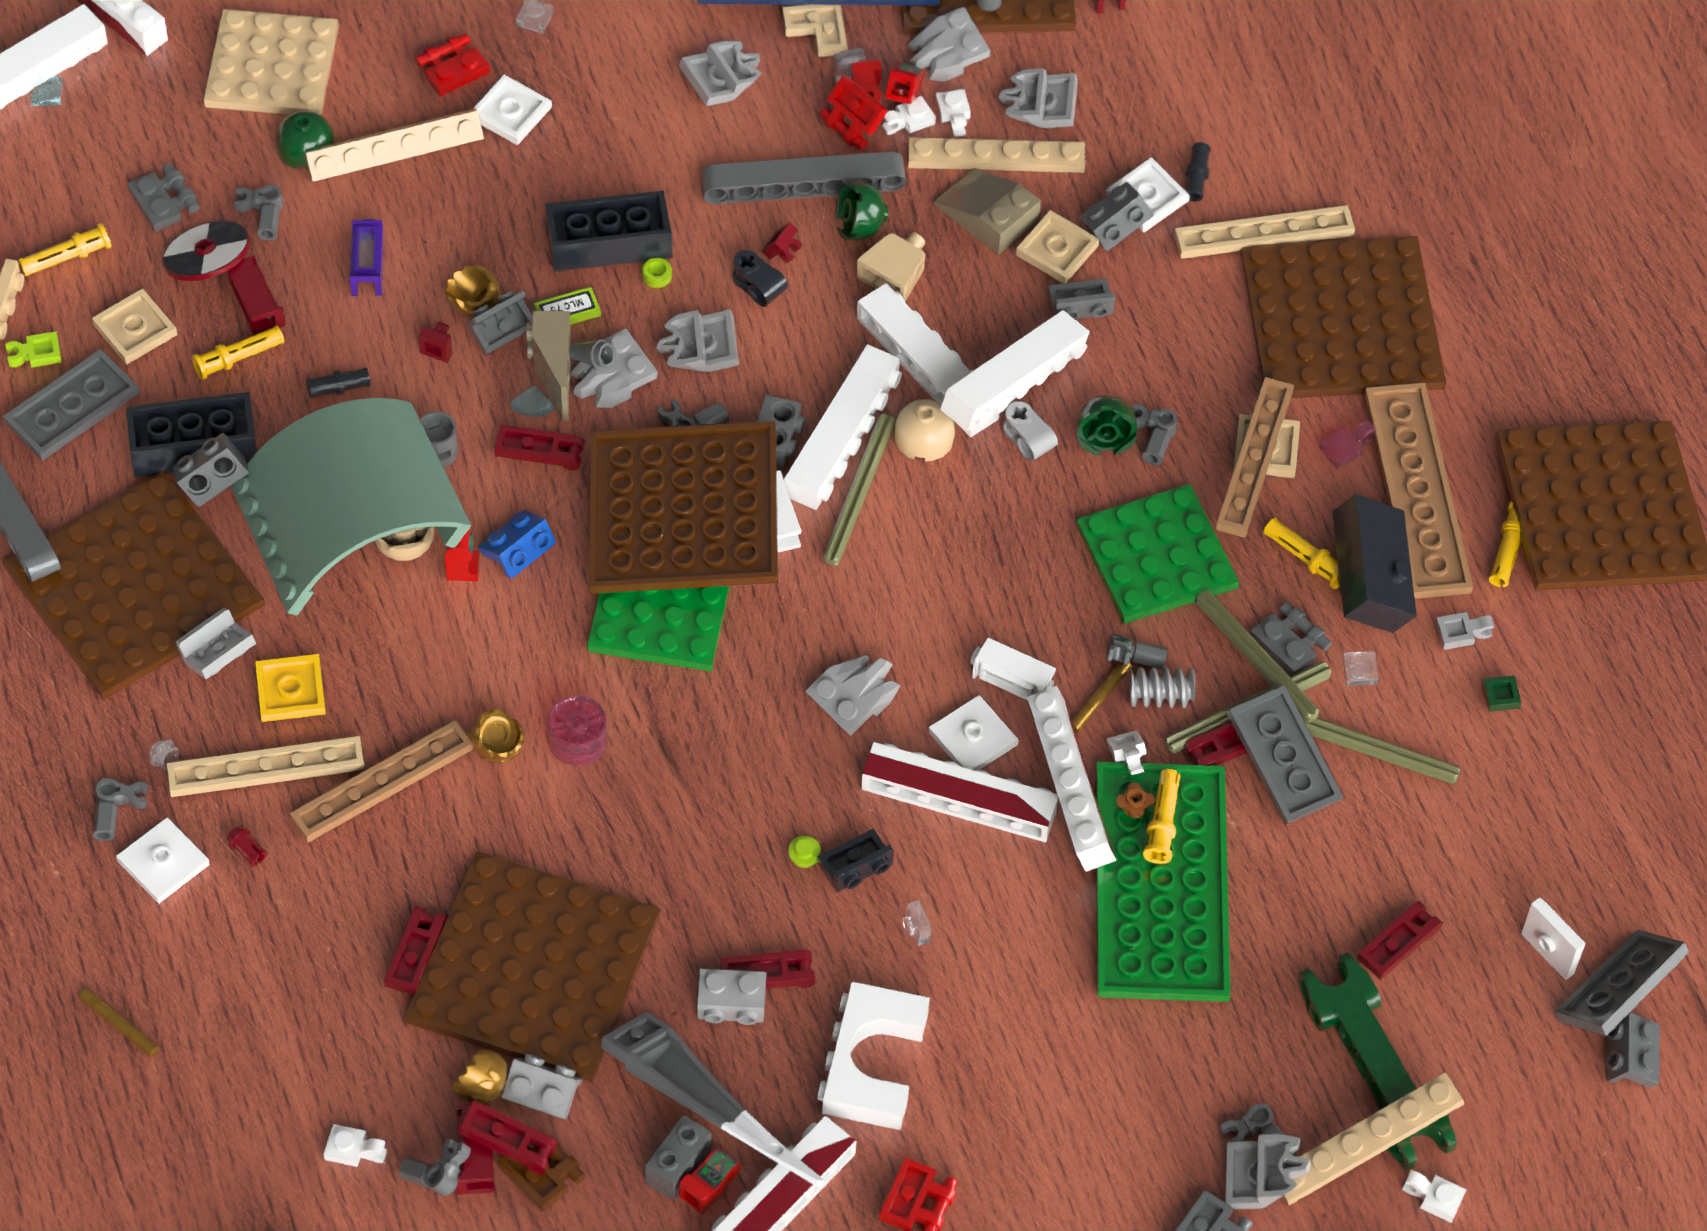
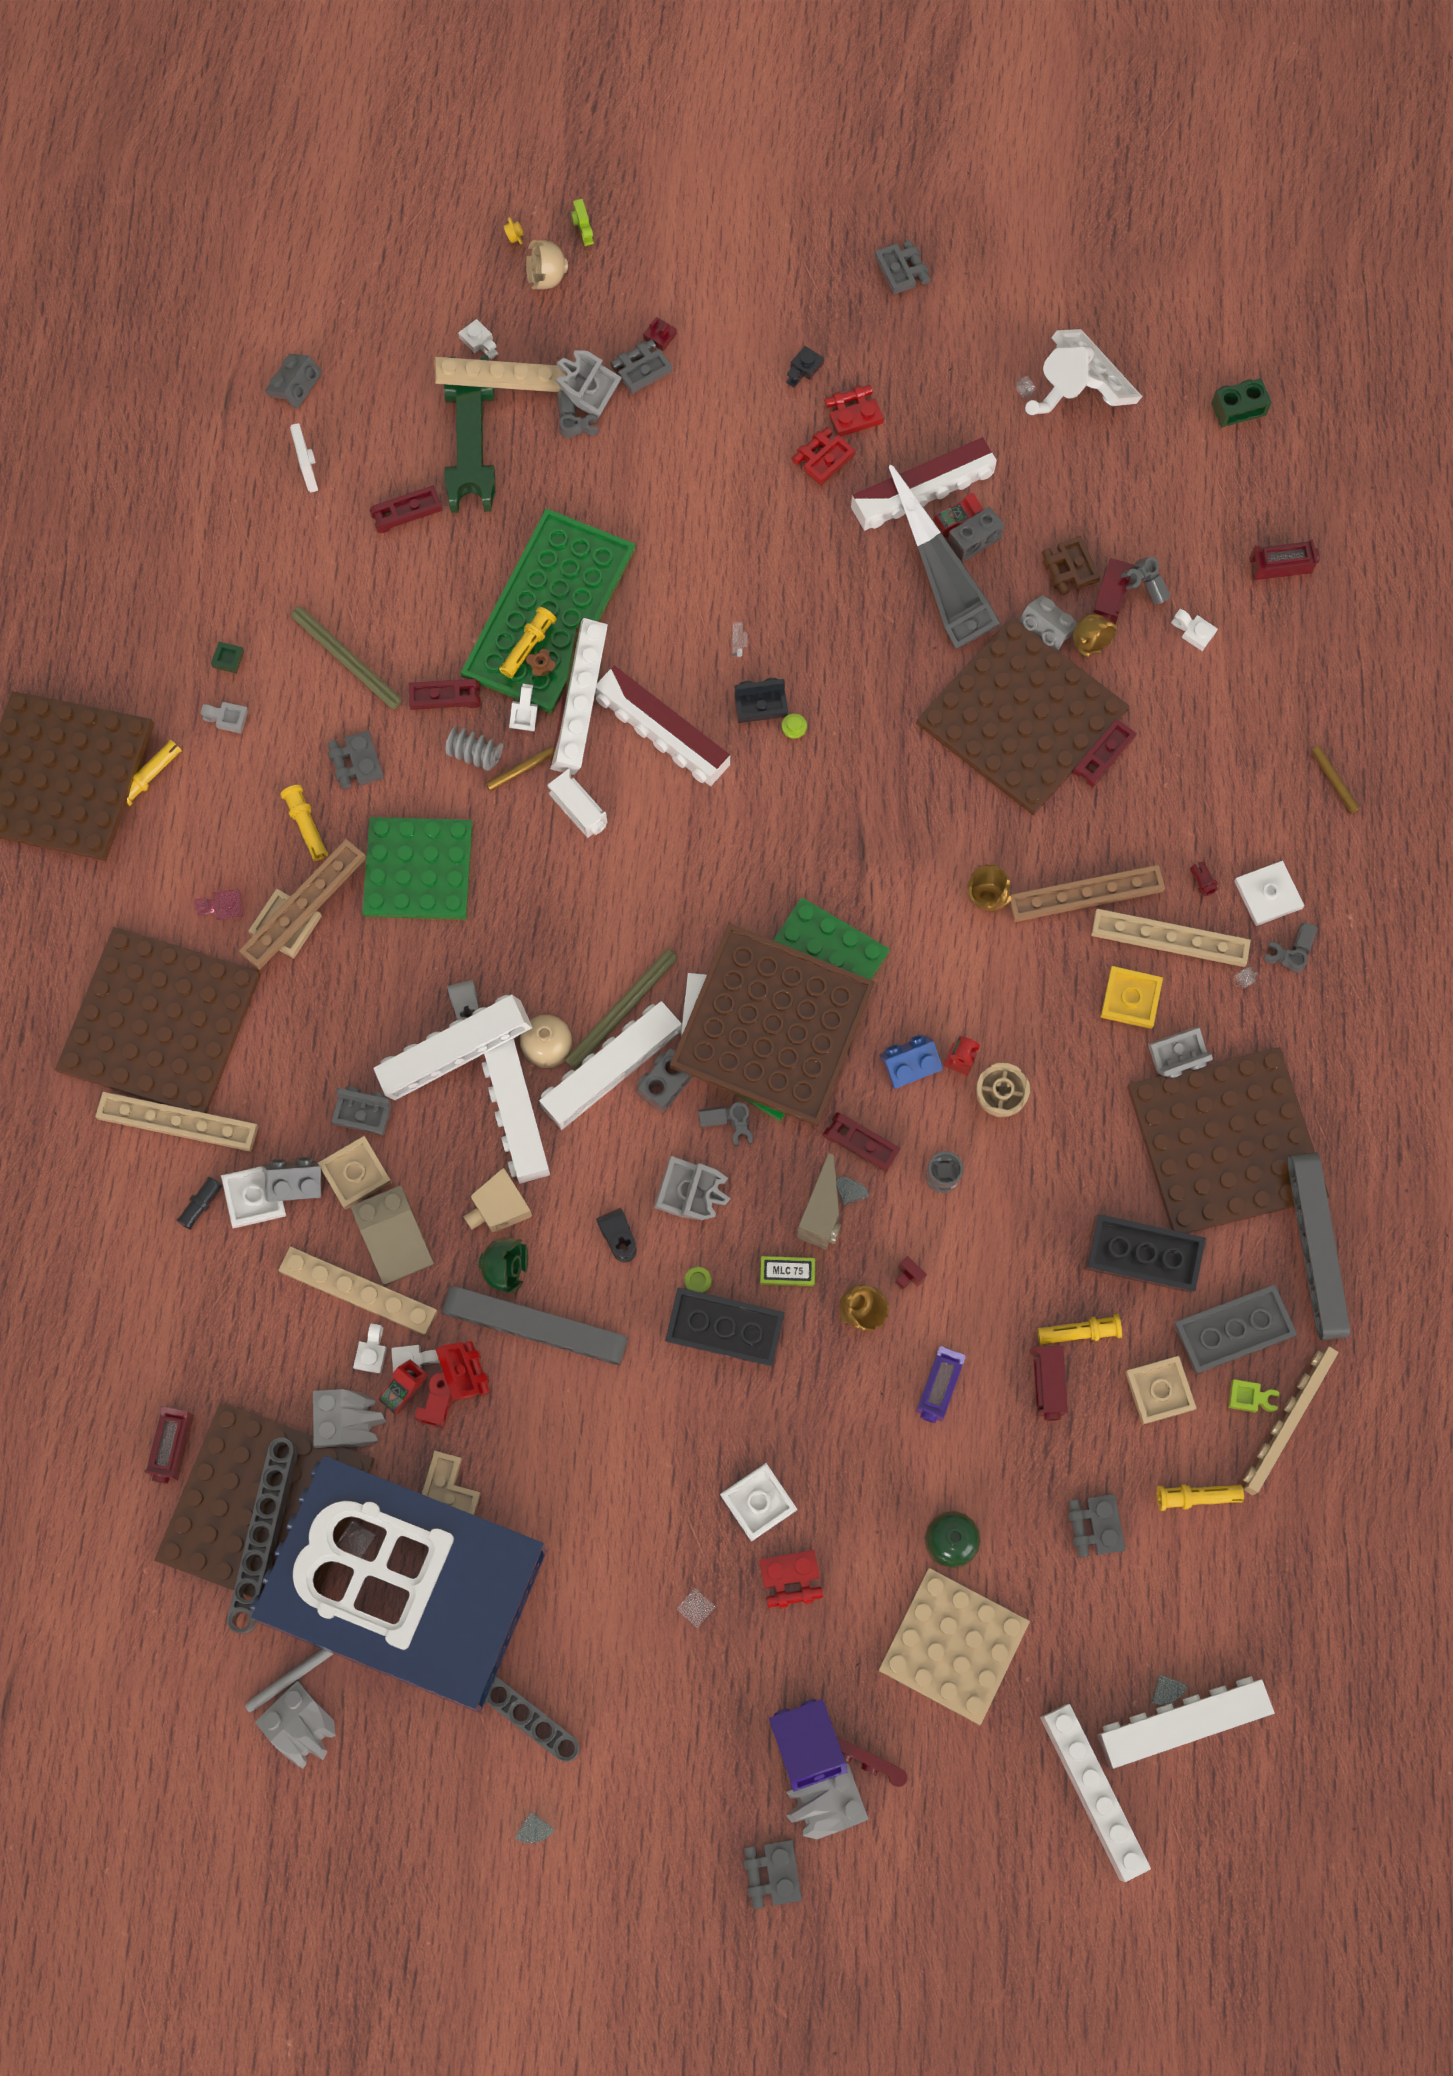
camera: 155 degrees left, 15 degrees up
(206, 251) = (1086, 1460): piece -> none
(215, 474) = (1141, 1204): dark grey brick -> none
(269, 202) = (1004, 1484): dark grey bar -> none
(338, 382) = (1005, 1267): black pin -> none
(341, 485) = (1040, 1118): sand green panel -> none
(394, 144) = (875, 1499): plate -> none
(501, 323) = (850, 1269): dark grey bracket -> none
(508, 1137) = (1092, 576): dark red plate -> none
(577, 730) = (926, 875): clear pink wheel -> none
(594, 353) = (787, 1196): dark grey cone -> none
(614, 383) = (772, 1192): light grey plate -> none
(721, 71) = (556, 1468): light grey plate -> none
(731, 996) = (893, 631): light grey bracket -> none
(776, 967) = (859, 646): dark red plate -> none
(781, 241) = (583, 1264): dark red tile -> none
(843, 61) = (440, 1434): clear plate -> none
(854, 691) = (703, 836): light grey plate -> none
(867, 1013) = (804, 589): white arch -> none
(973, 735) = (630, 771): white plate -> none
(1041, 98) = (291, 1329): light grey plate -> none
(1106, 425) = (401, 985): dark green cylinder -> none
(1122, 649) = (485, 792): dark grey bar -> none
(1162, 427) = (354, 973): dark grey bar -> none
(1255, 653) = (390, 746): olive axle -> none
(1284, 755) = (413, 660): dark grey plate -> none
(1304, 680) = (417, 718): olive axle -> none
(1360, 668) = (318, 714): clear plate -> none
(1374, 563) = (263, 780): black brick -> none
(1419, 486) = (190, 843): medium nougat plate -> none
(1621, 982) = (268, 417): dark grey plate -> none

